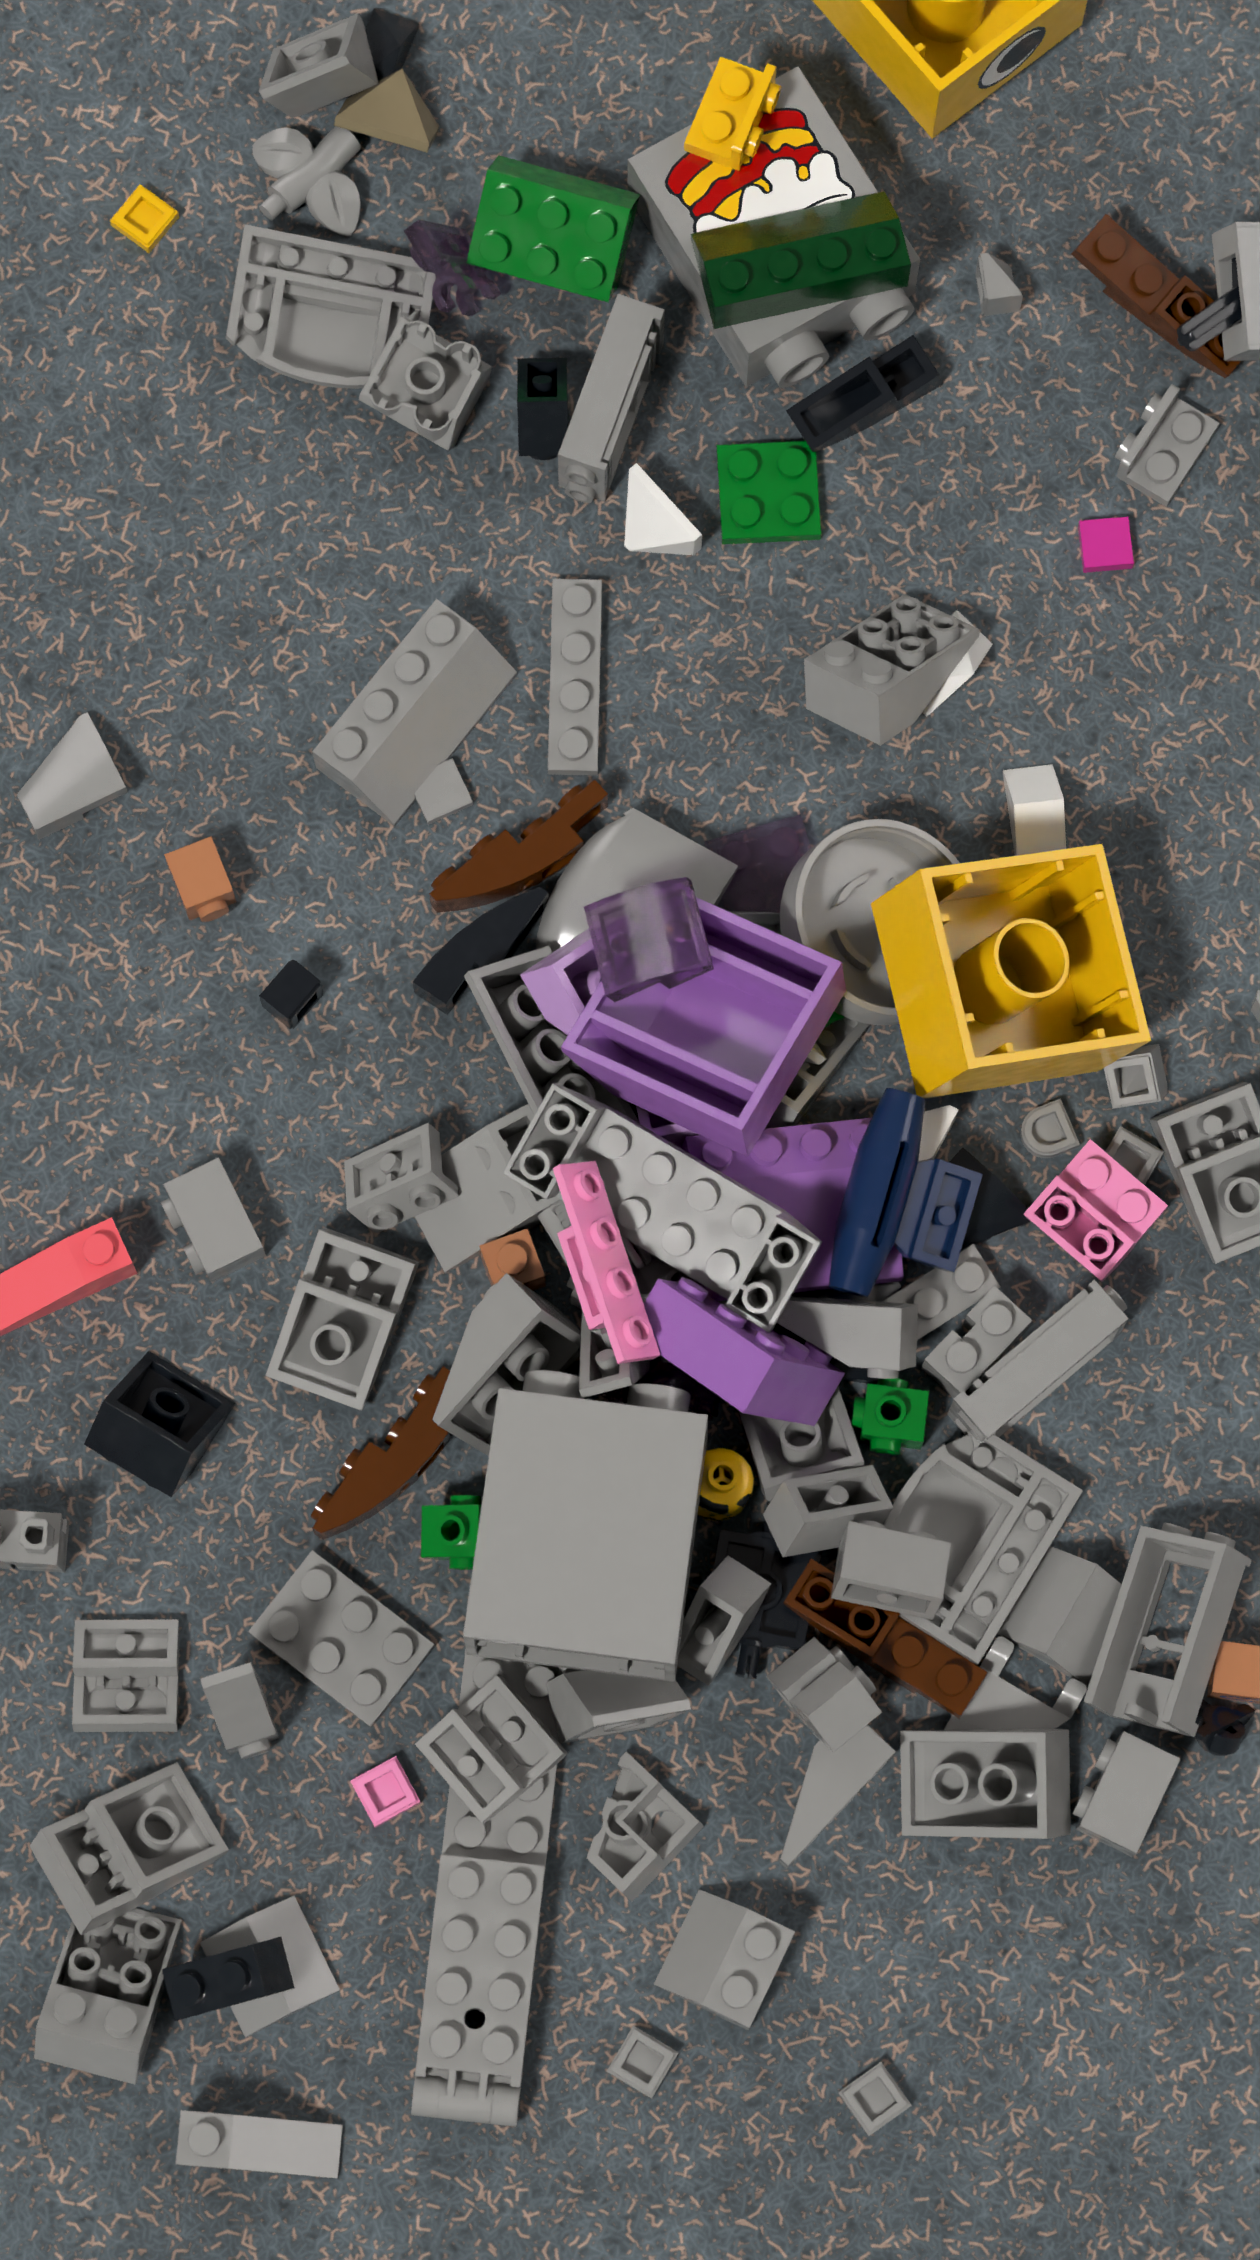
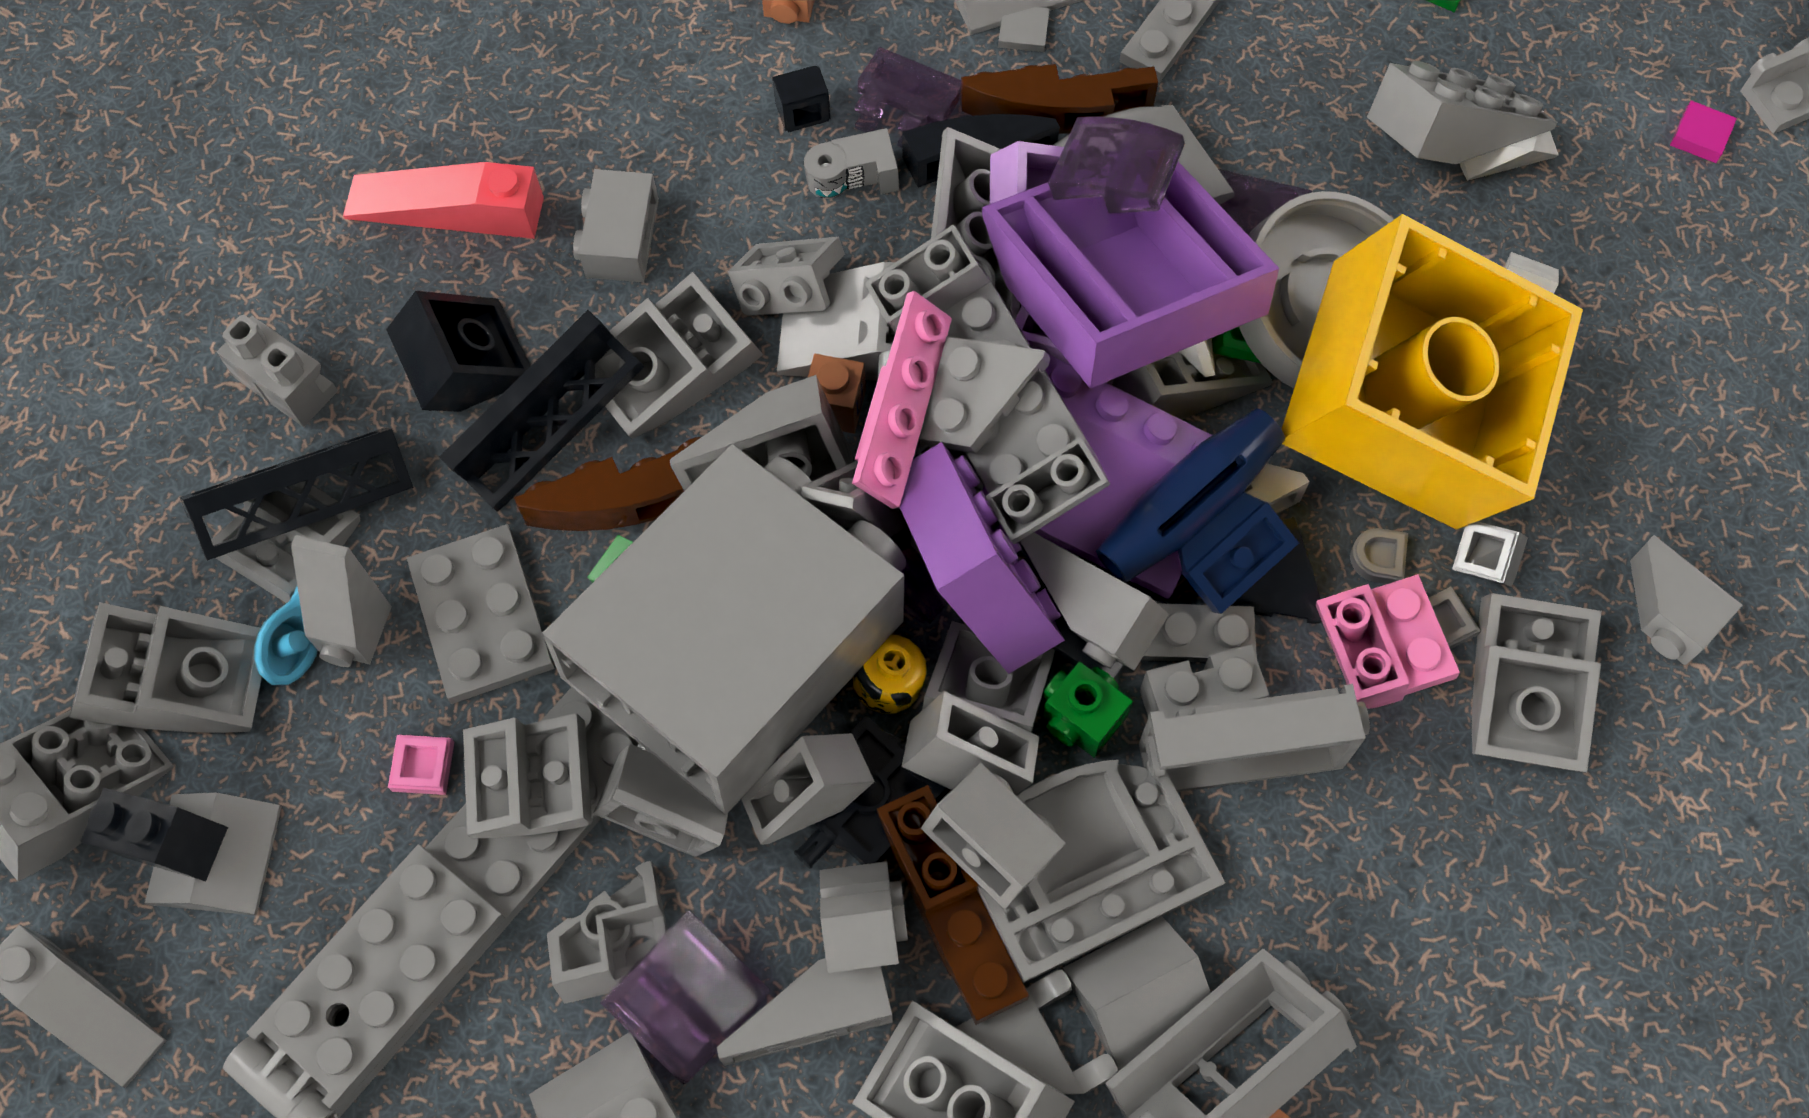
camera: 35 degrees right, 10 degrees down
(106, 1622) = (289, 473): none -> black fence
(202, 1753) = (281, 645): none -> medium azure piece
(260, 1432) = (527, 402): none -> black fence
(379, 1030) = (852, 164): none -> light grey leg
(381, 922) = (905, 85): none -> clear purple plate
(657, 1216) = (975, 390): none -> light grey wing
(728, 1837) = (685, 997): none -> clear purple slope

